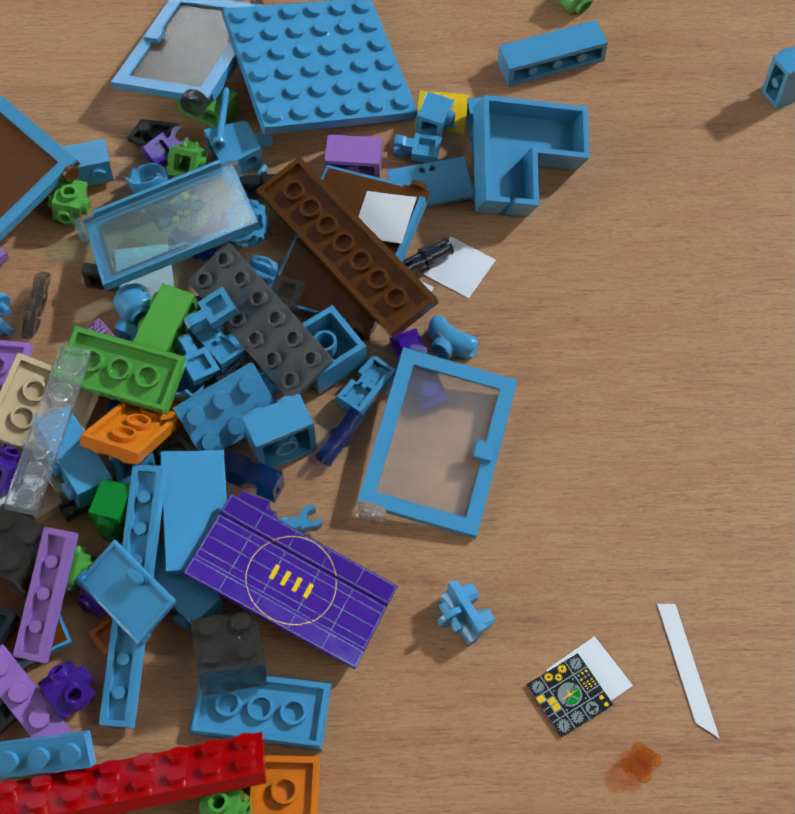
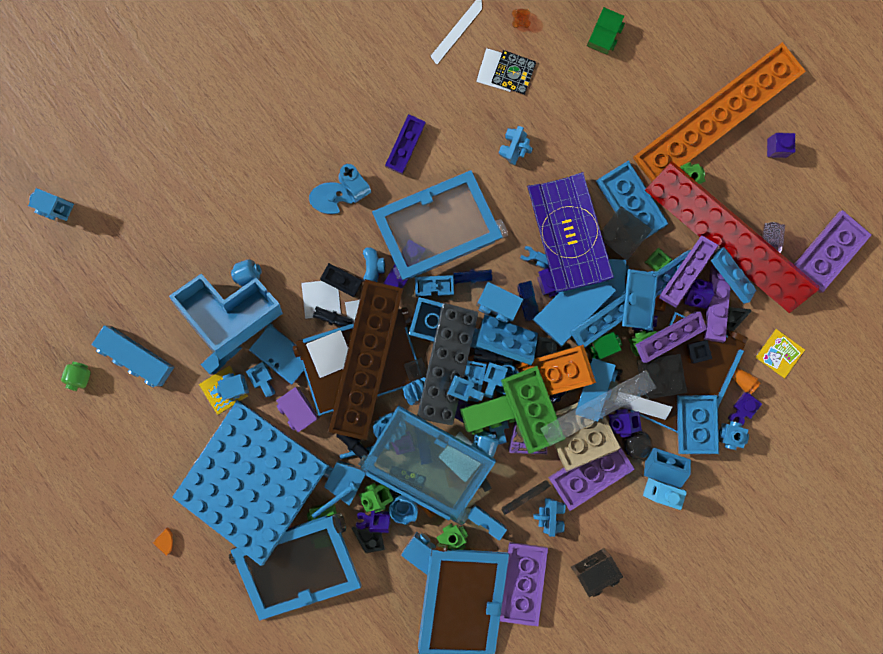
camera: 135 degrees left, 25 degrees up
(62, 247) = (482, 518): none -> dark azure piece
(104, 691) = (688, 271): none -> medium lavender plate
(156, 681) = (658, 260): none -> bright green tile
(463, 295) = (341, 280): none -> black plate
(554, 208) = (245, 271): none -> dark azure head
(567, 386) = (355, 185): none -> dark azure piece
(575, 482) = (405, 144): none -> dark purple plate
(578, 350) = (325, 199): none -> dark azure piece

